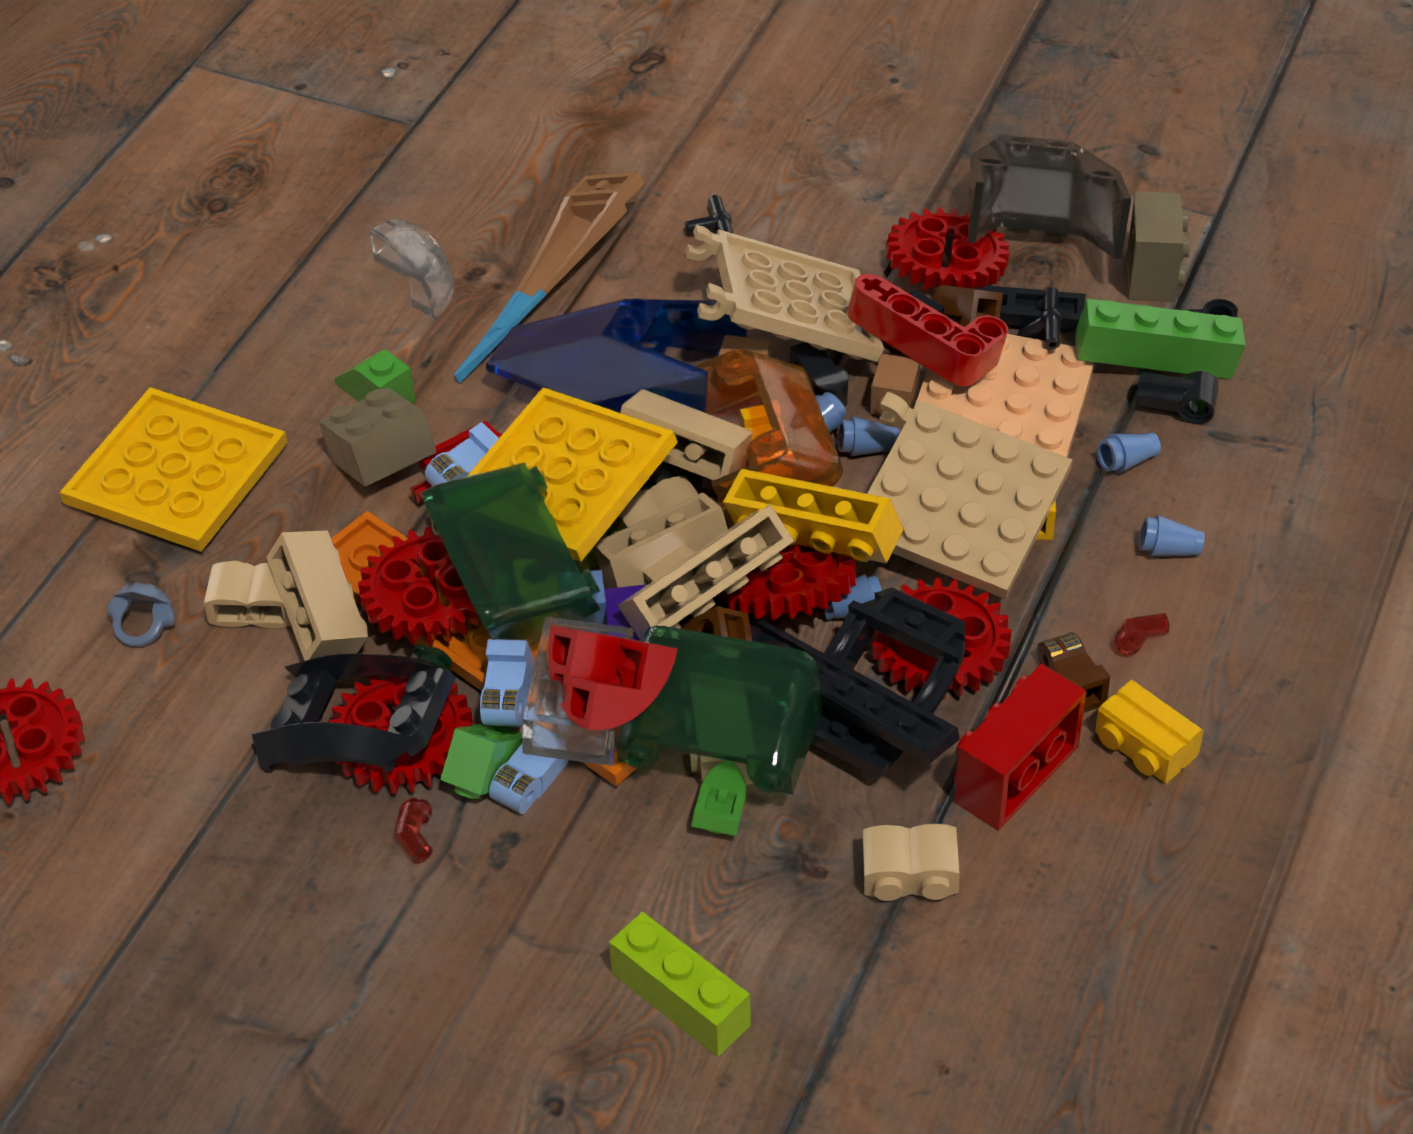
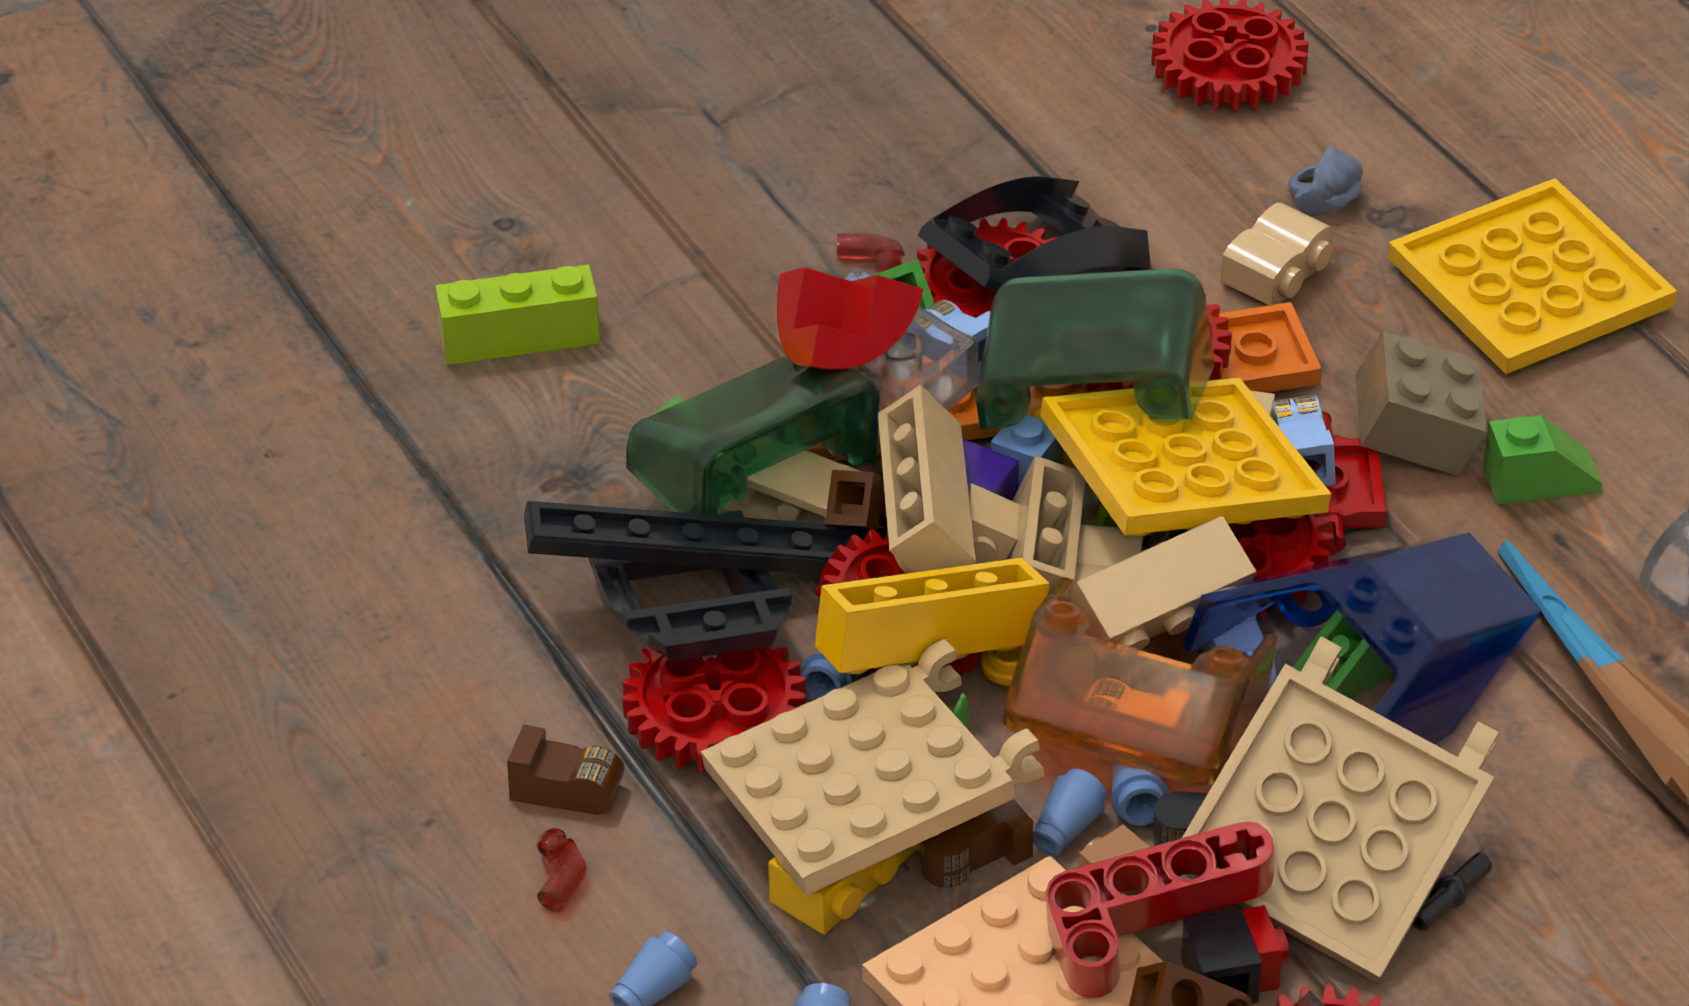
camera: 125 degrees right, 5 degrees down
(316, 594) = (1231, 262): tan brick -> none
(719, 220) = (1604, 902): black piece -> none
(910, 861) = (475, 524): tan brick -> none
(1018, 746) = (503, 639): red brick -> none
(1148, 732) = (427, 777): yellow brick -> none

